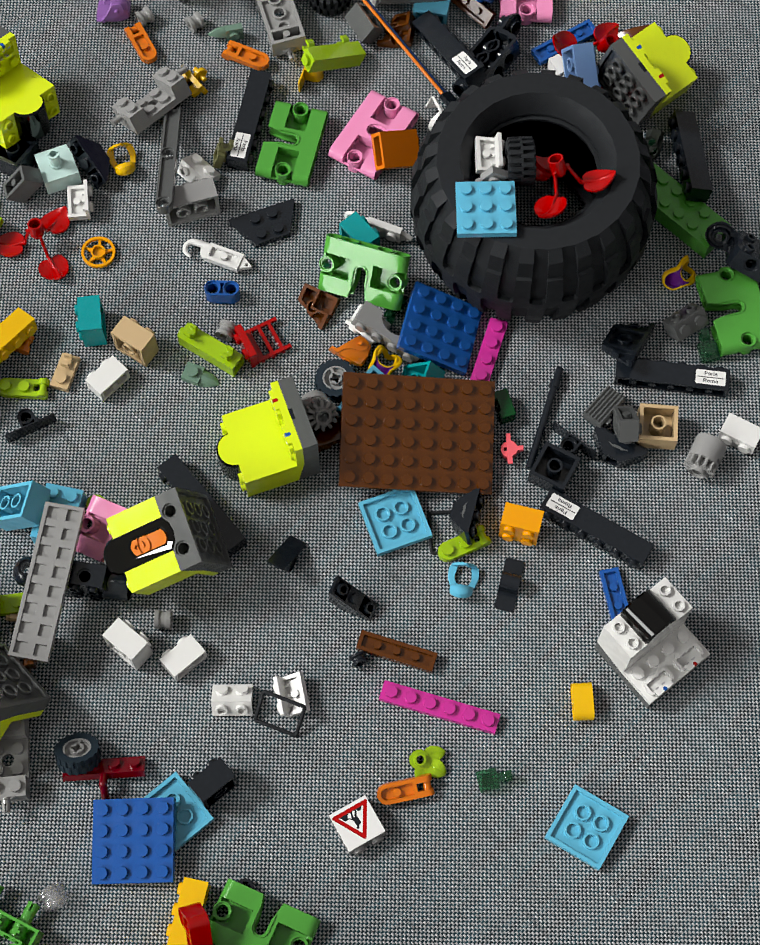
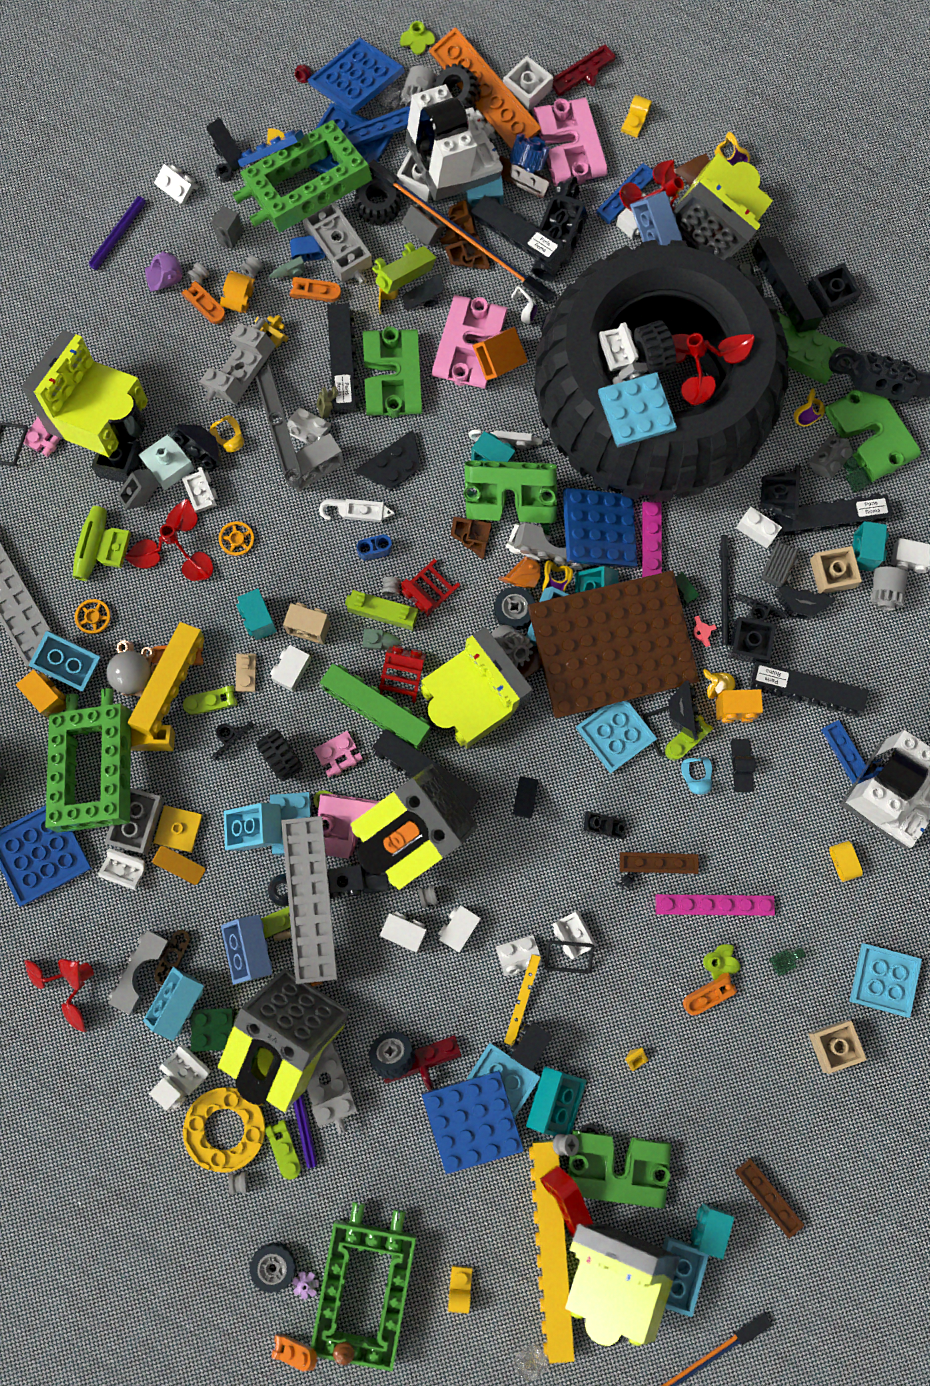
camera: 20 degrees left, 10 degrees up
(53, 897) = (415, 1199): clear wheel -> none
(67, 449) = (279, 755): none -> black tyre
(124, 462) = (335, 749): none -> bright pink plate
(172, 431) = (374, 706): none -> bright green brick
(173, 39) = (237, 291): none -> light orange brick
(209, 888) = (565, 1144): none -> light grey wheel
(214, 398) = (406, 661): none -> red plate
(221, 848) = (556, 1102): none -> teal slope
(225, 734) = (523, 996): none -> yellow piece
(250, 19) = (307, 248): none -> blue beam
(313, 830) = (636, 1058): none -> yellow slope
(344, 83) = (424, 294): none -> black piece
(357, 826) = (677, 1043): piece -> none
(396, 59) = (466, 255): none -> reddish brown slope
(510, 496) = (720, 682): none -> yellow piece
(516, 874) = (837, 1046): none -> tan brick
(594, 368) = (758, 527): none -> white brick
(626, 424) = (809, 578): dark grey brick -> none
(682, 31) = (739, 153): none -> yellow piece
(697, 412) = (870, 545): none -> teal brick
(736, 173) = (834, 289): none -> black brick

